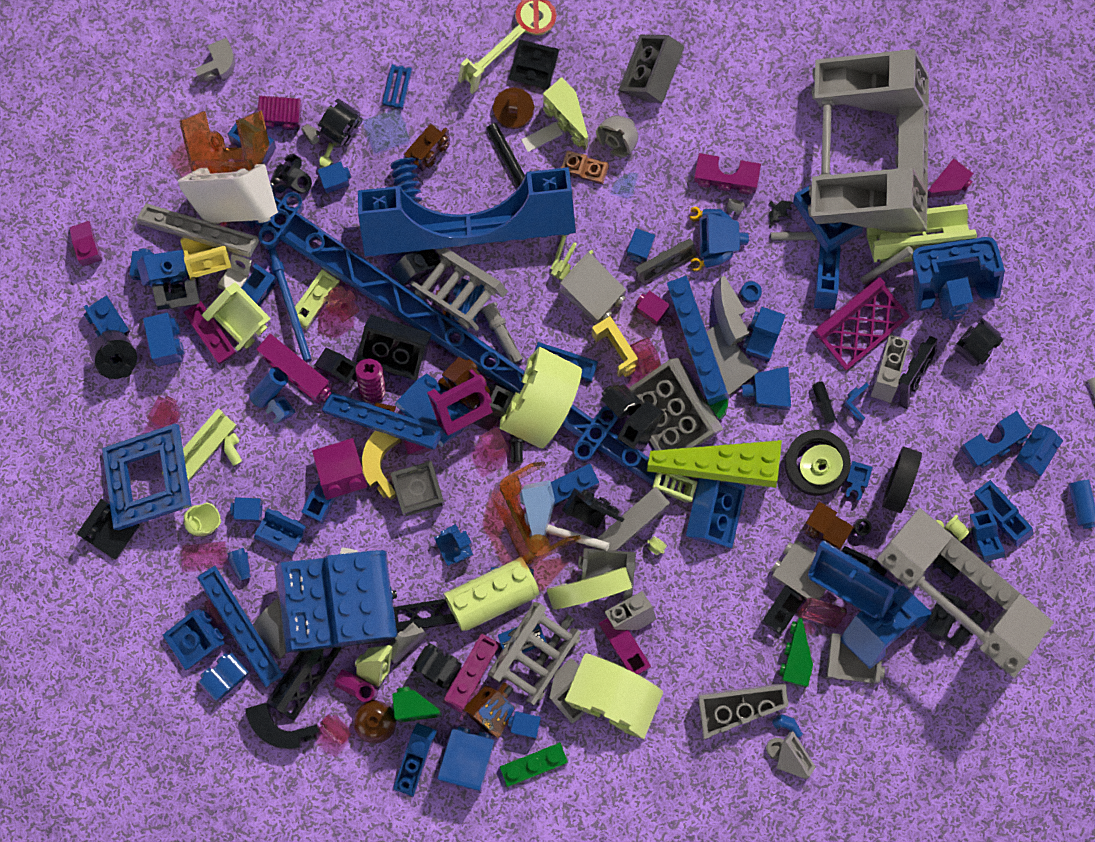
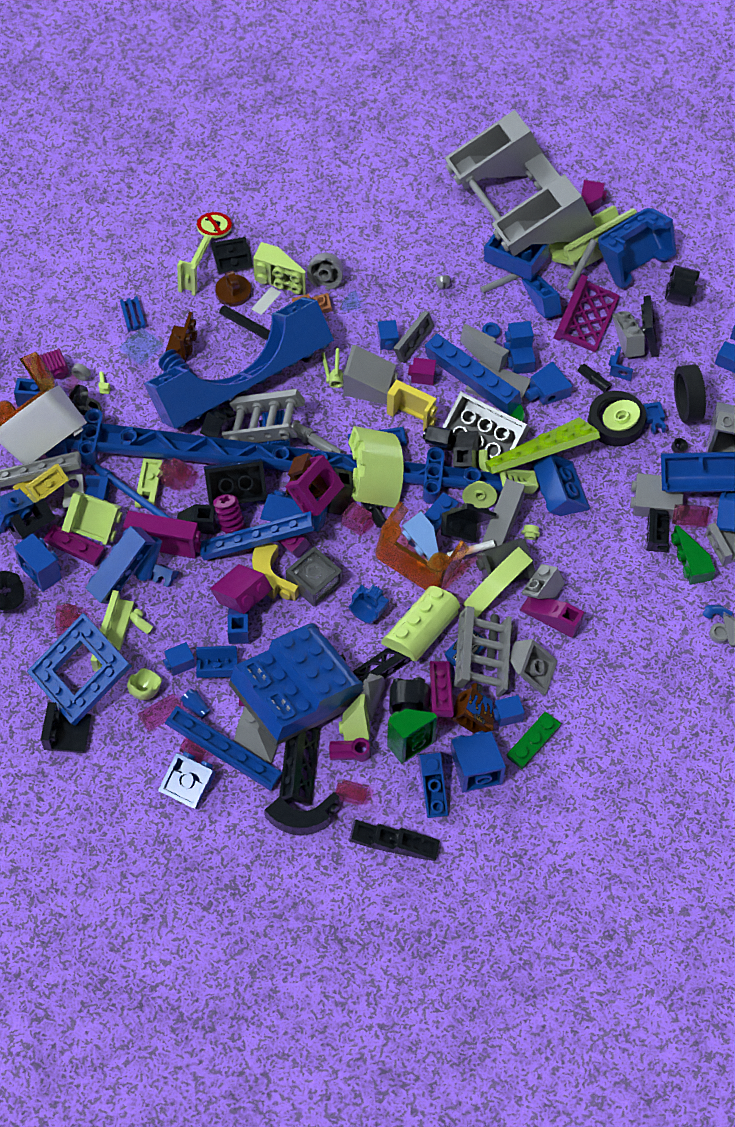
camera: 30 degrees left, 20 degrees down
(224, 676) = (230, 798): blue brick -> none
(236, 386) = (120, 563): none -> blue brick
(334, 177) = (117, 392): blue brick -> none
(339, 123) = (101, 351): black brick -> none
(349, 796) = (394, 841): none -> black slope
(374, 722) = (381, 771): reddish brown cylinder -> none
(616, 694) = (568, 645): yellowish green panel -> none
(627, 480) = (480, 494): none -> yellowish green piece
(647, 356) = (443, 402): clear pink brick -> none
(651, 67) = (323, 219): dark grey slope -> none
(655, 441) = (482, 458): none -> yellowish green arm
(709, 174) = (410, 267): magenta arch -> none
(718, 237) = (443, 302): blue torso -> none
(738, 706) = (665, 616): light grey wedge -> none
(779, 211) = (477, 269): black piece -> none
(827, 526) = (648, 452): reddish brown brick -> none
(955, 299) = (647, 260): blue brick -> none

